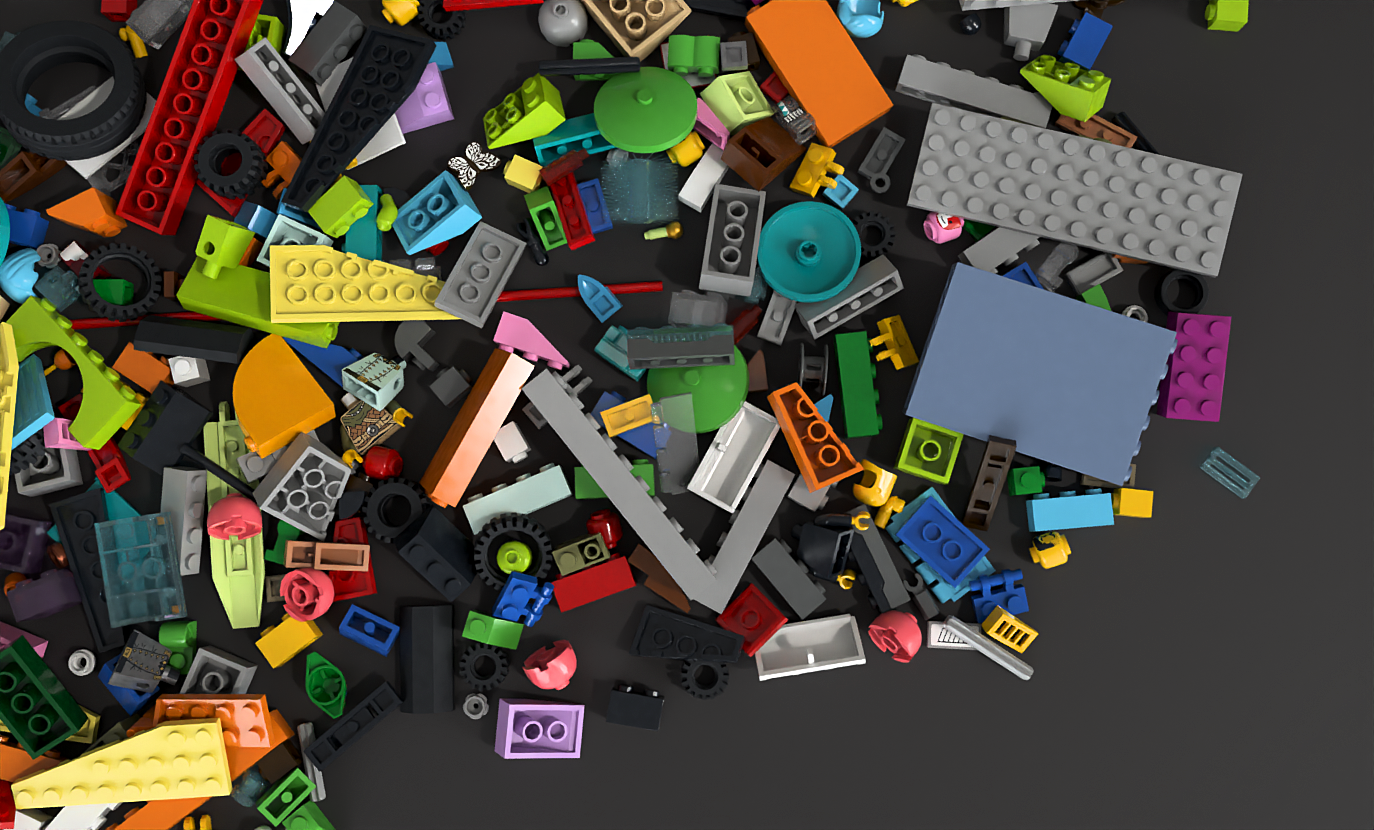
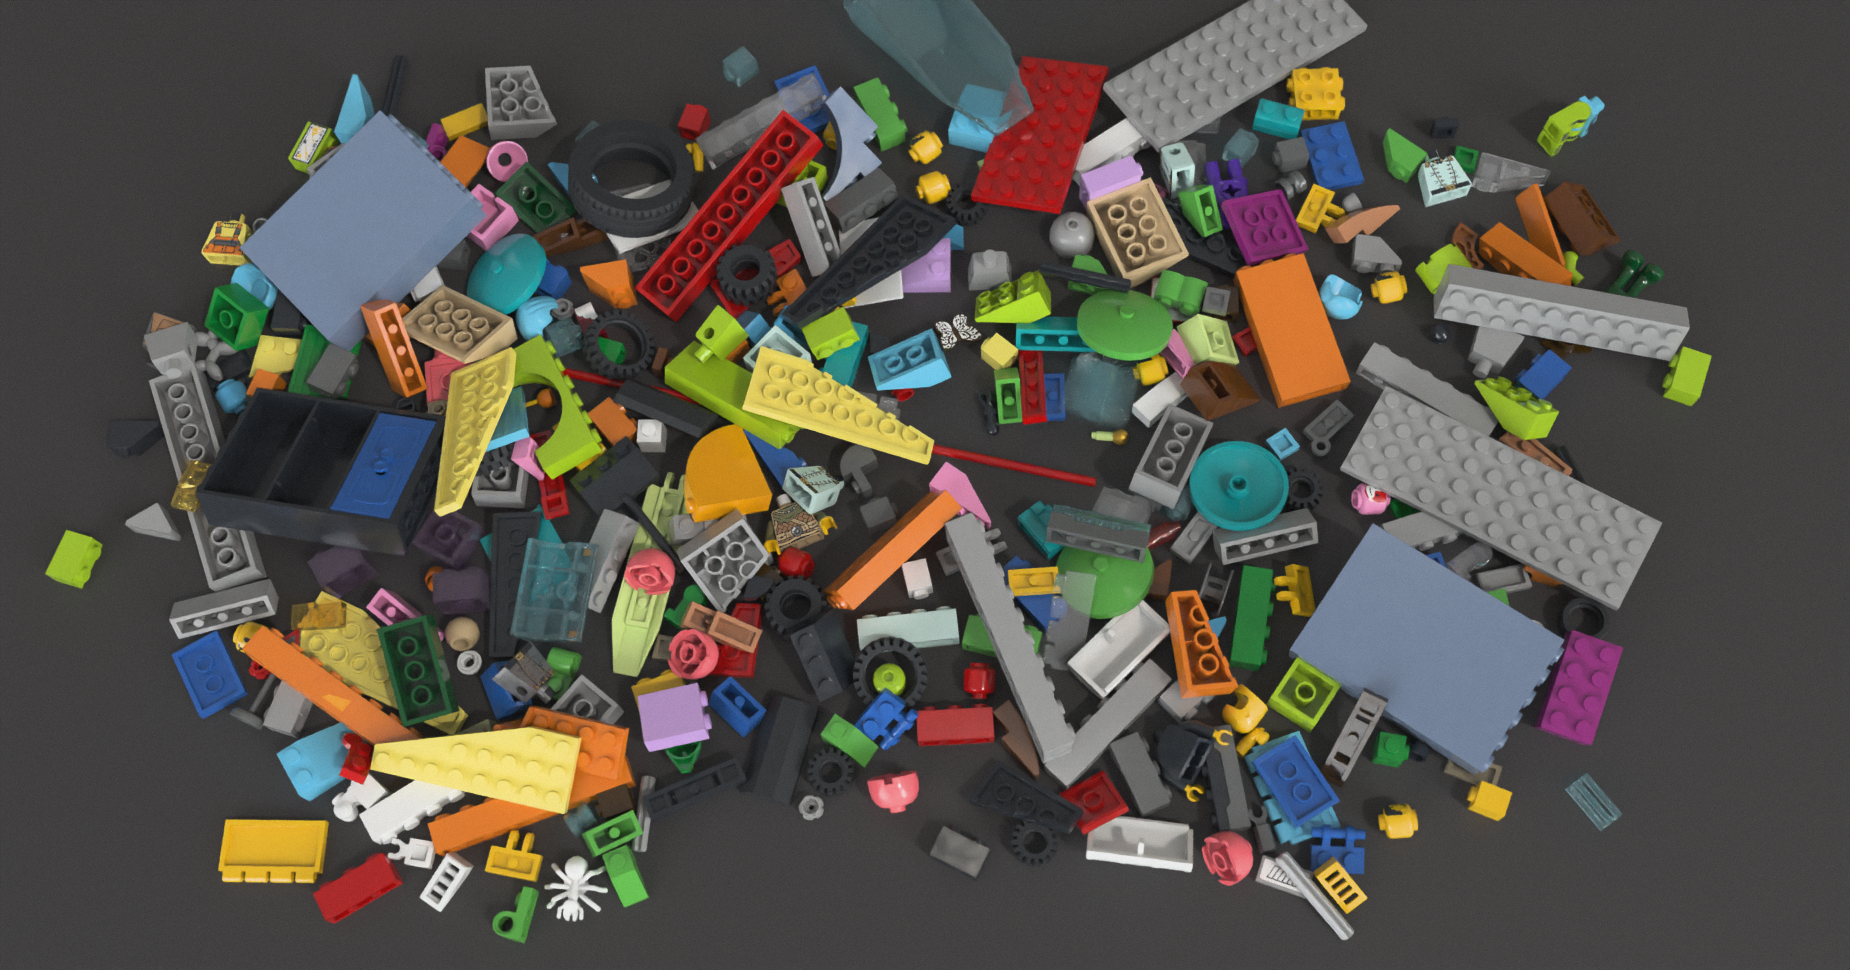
camera: 15 degrees right, 15 degrees down
(57, 555) = (483, 560): copper tile -> none
(63, 637) = (462, 633): none -> tan piece
(307, 665) = (674, 717): none -> lavender brick
(387, 214) = (868, 352): lime arm -> none
(480, 274) = (935, 424): light grey plate -> none
(487, 85) = (988, 270): none -> light grey torso
(538, 729) = (864, 845): lavender slope -> none
(563, 166) = (1036, 353): clear red cylinder -> none
(580, 552) = (952, 692): olive slope -> none
(597, 297) = (1034, 475): dark azure plate -> none
(795, 119) = (1257, 370): clear leg -> none
(813, 171) = (1262, 419): yellow hinge -> none
(1069, 510) = (1426, 790): medium azure brick -> none

